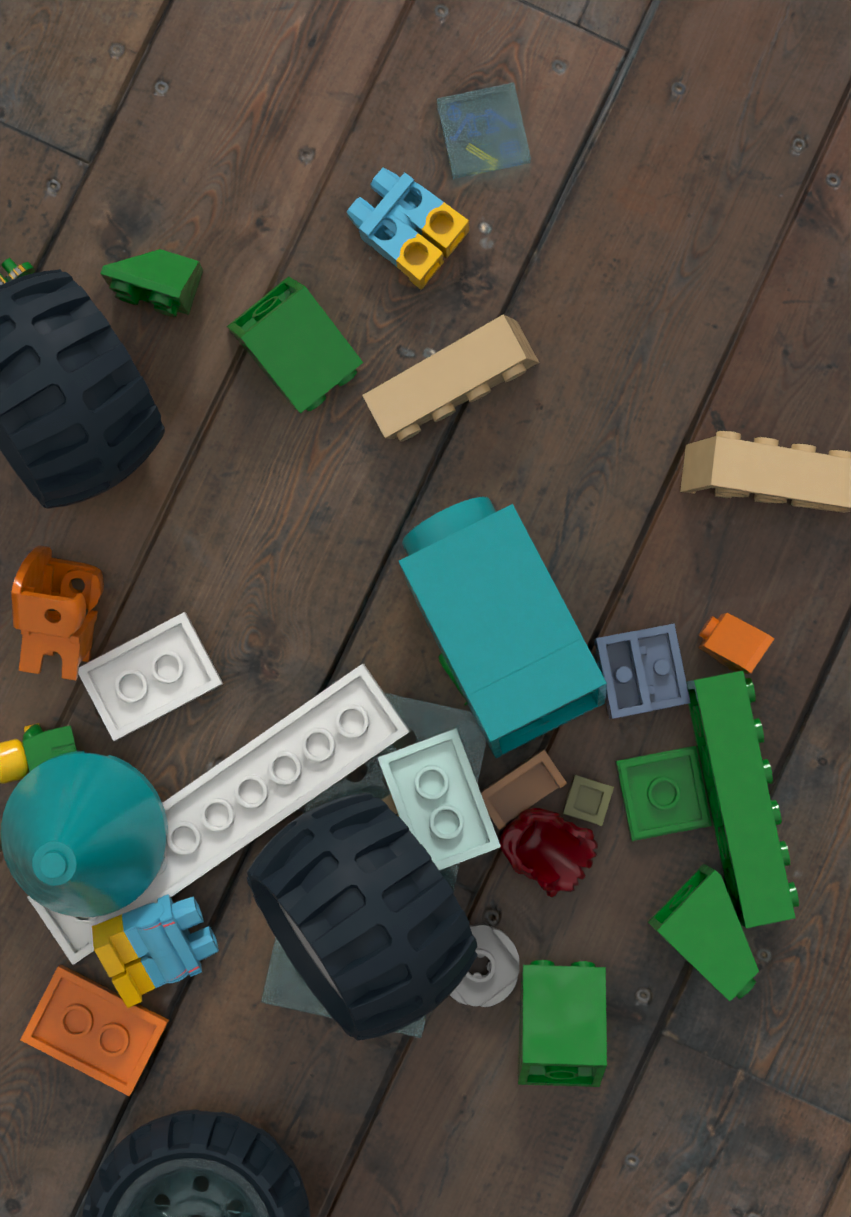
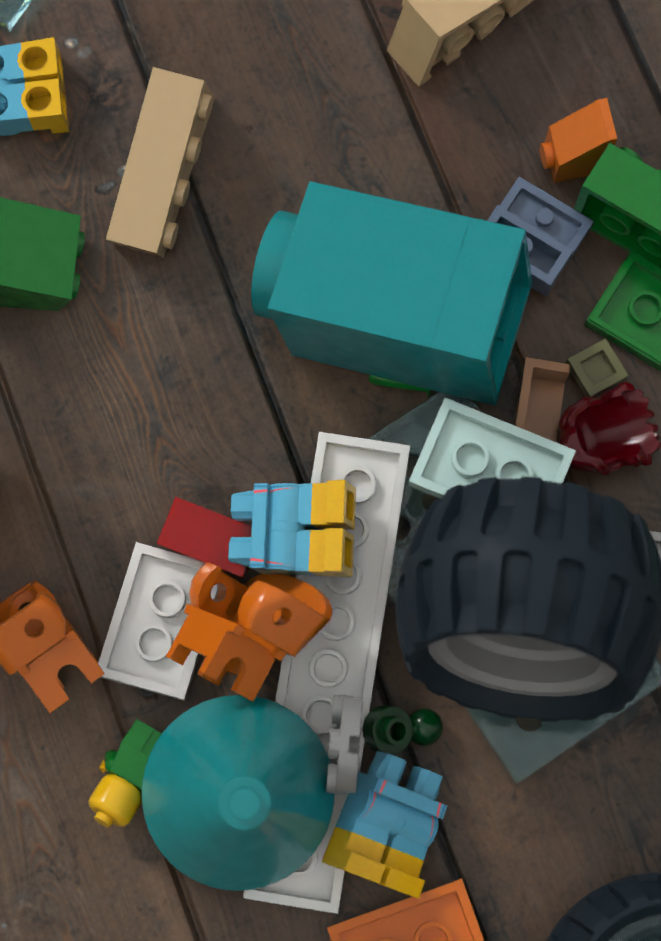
camera: 45 degrees left, 10 degrees down
(171, 876) = (344, 745): none -> light grey plate
(207, 753) = (247, 625): none -> orange piece
(232, 656) = (202, 535): none -> red hinge
(240, 907) = (421, 727): none -> dark green plate
(269, 703) = (296, 528): none -> hips

